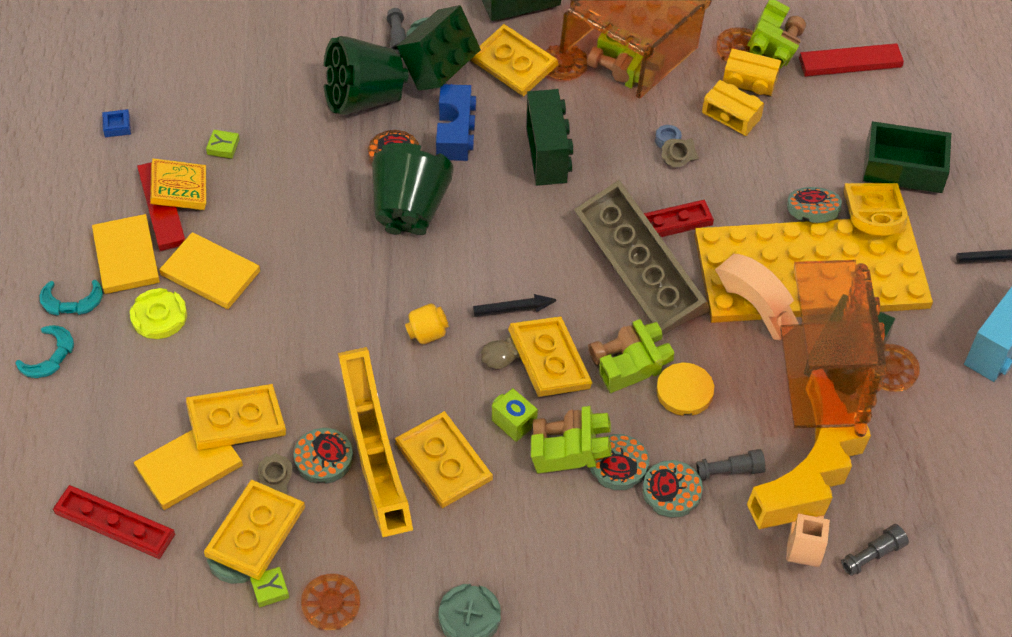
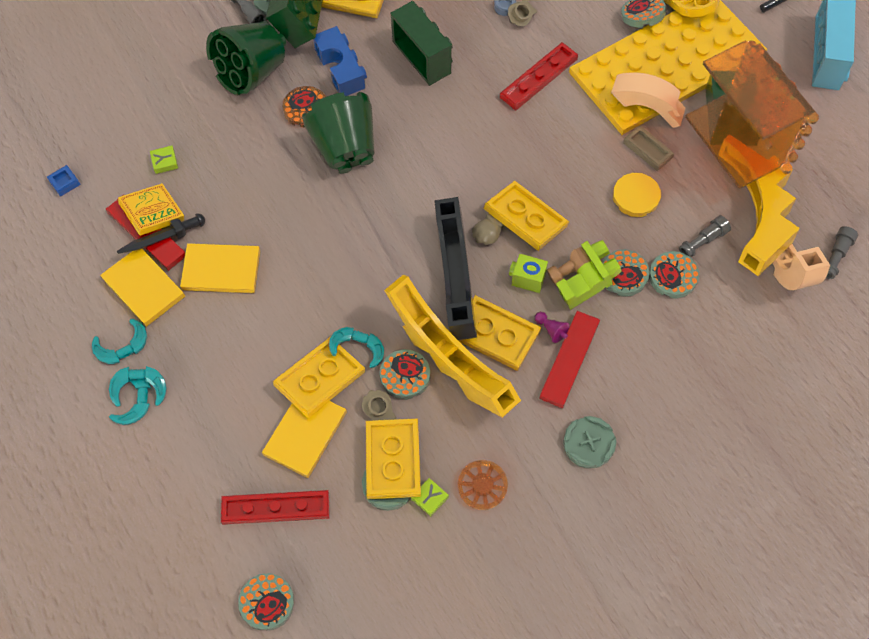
camera: 25 degrees left, 10 degrees up
(46, 606) = (266, 601): none -> tile
(54, 327) = (126, 374): none -> teal piece
(158, 313) = (201, 322): neon yellow tile -> none
(192, 214) = (177, 228): none -> black sword
(289, 388) = (347, 333): none -> teal piece
(417, 409) = (456, 270): none -> black arch
(427, 323) = (420, 232): yellow head -> none
(502, 521) = (569, 359): none -> red tile
(506, 485) = (556, 329): none -> magenta piece
(538, 303) = (489, 178): black piece -> none
(638, 358) = (591, 187): lime hips -> none
(641, 258) = (547, 107): dark tan arch -> none
(730, 348) = (648, 148): none -> dark tan tile

